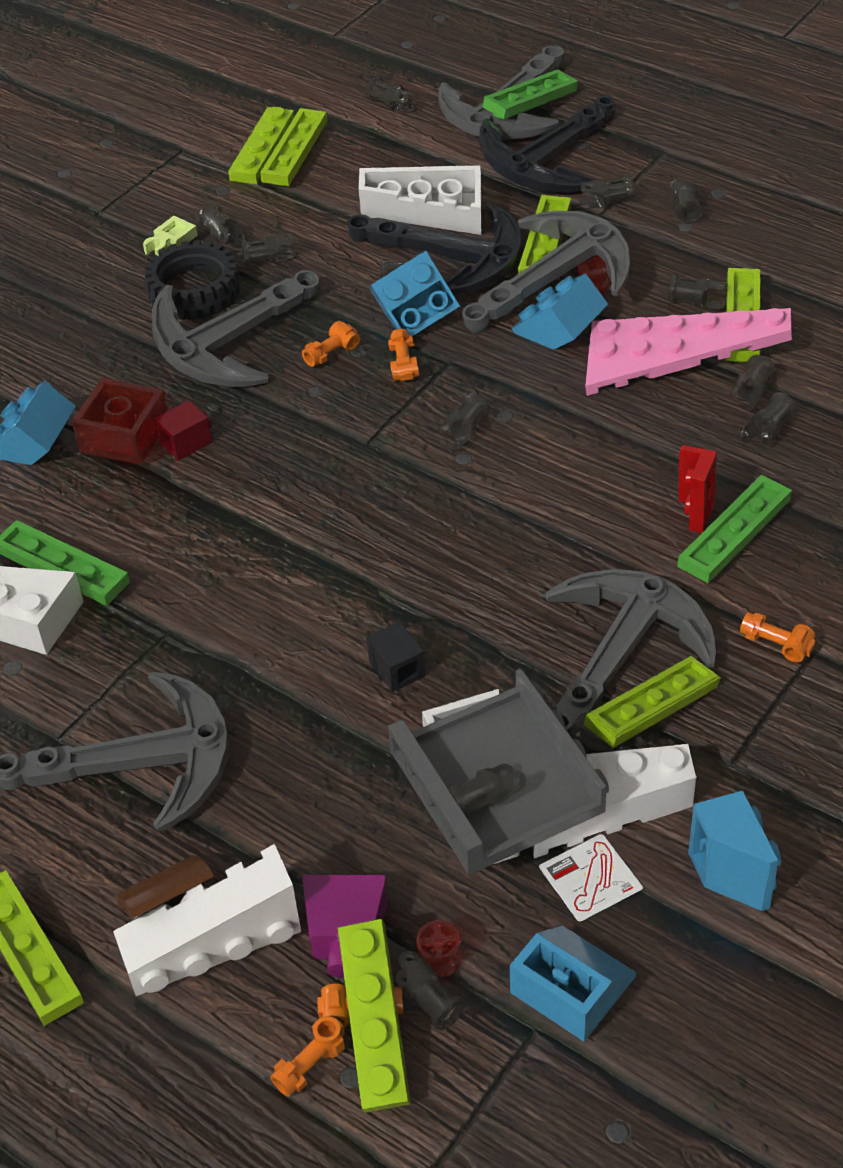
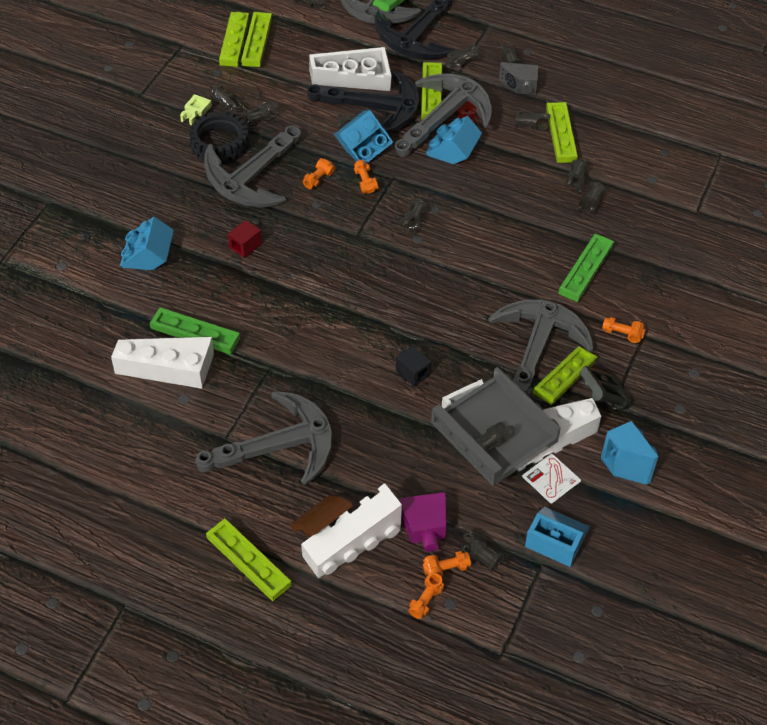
camera: 15 degrees left, 5 degrees up
(119, 421) = (205, 237): clear red brick -> none
(373, 1016) = (458, 568): lime plate -> none
(439, 937) = (483, 522): clear red wheel -> none
(676, 342) = (524, 155): bright pink wing -> none
(693, 227) = (519, 77): none -> flat silver slope
(697, 484) = (561, 243): red bracket -> none
(718, 729) = (605, 387): none -> pearl dark grey plate

